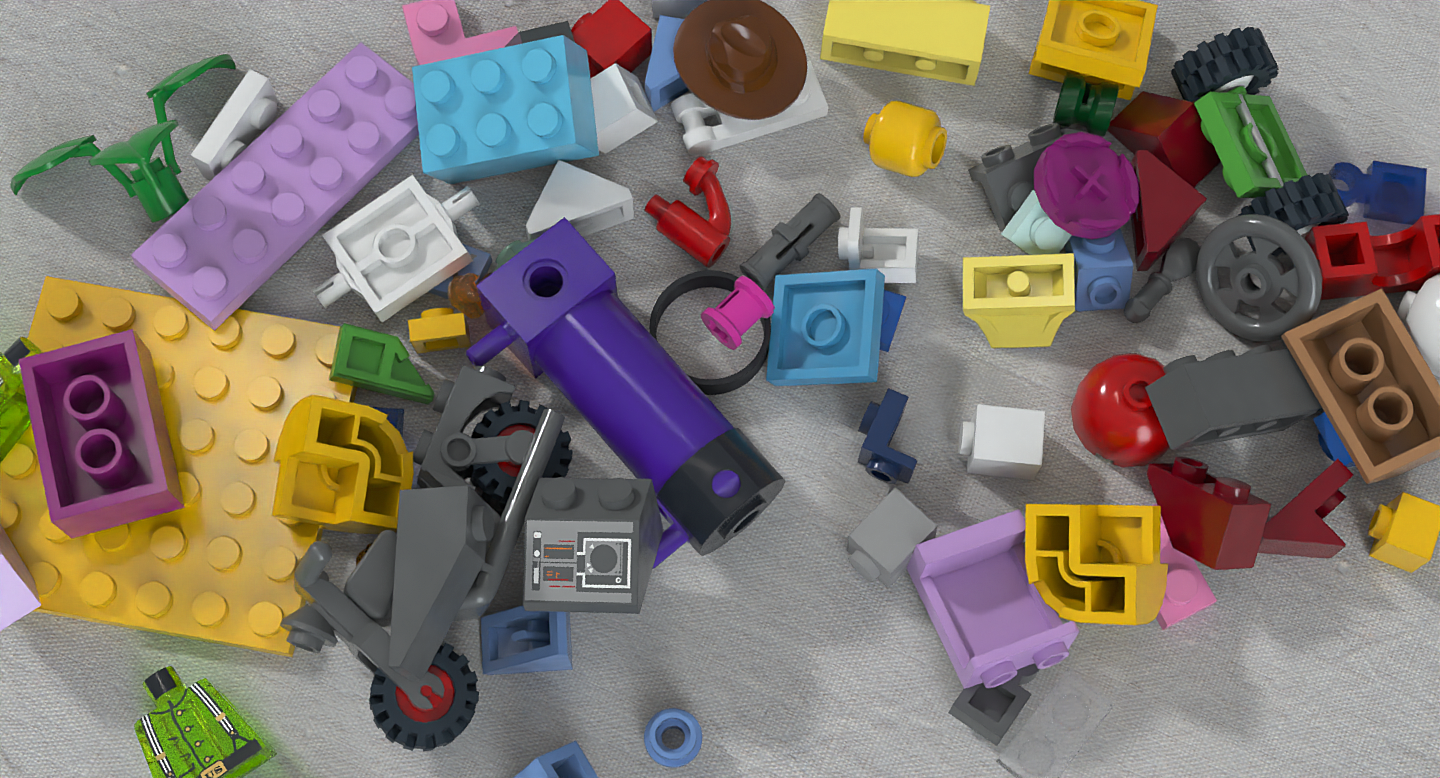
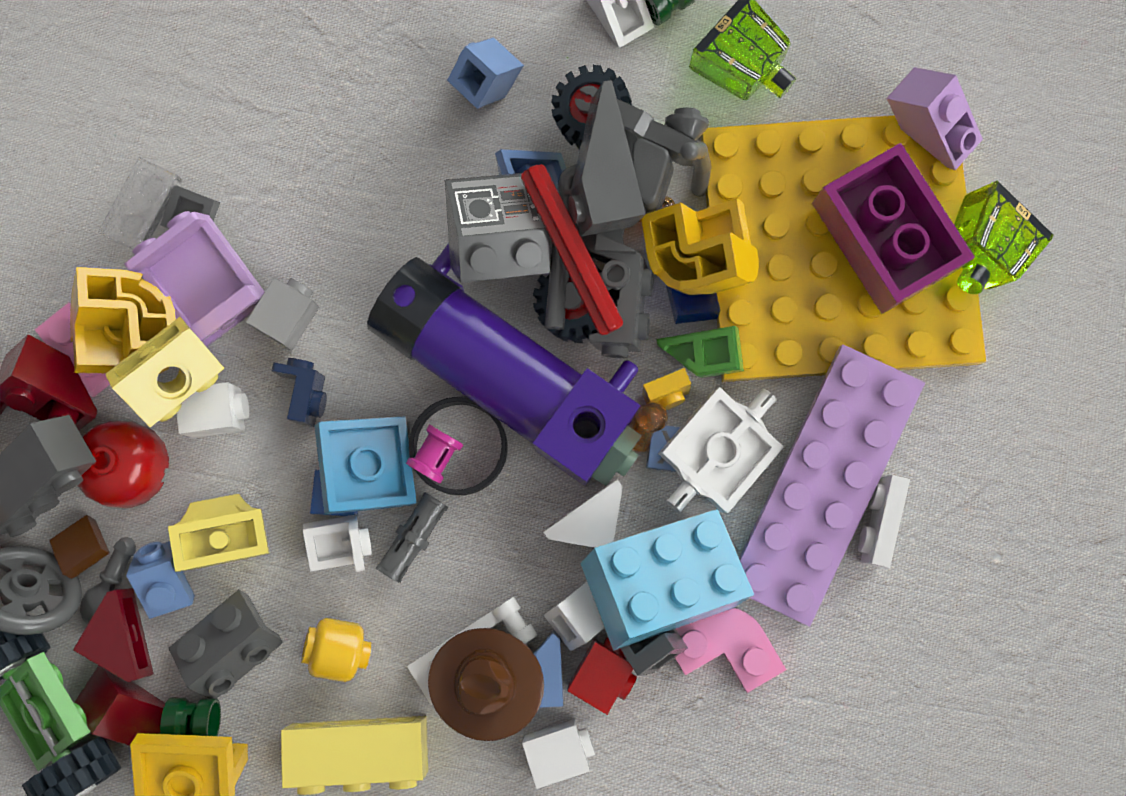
camera: 170 degrees right, 10 degrees up
(153, 181) = (938, 456): green plant -> none
(504, 484) = (571, 249): none -> red axle
(673, 719) = (408, 128): medium blue plate -> none
(686, 228) = (494, 526): red plant -> none
(1034, 230) = (210, 595): light aqua plate -> none
(1043, 468) = (172, 347): none -> light yellow brick
(1086, 185) = (173, 635): magenta tile -> none
(1192, 324) = (79, 547): none -> reddish brown tile

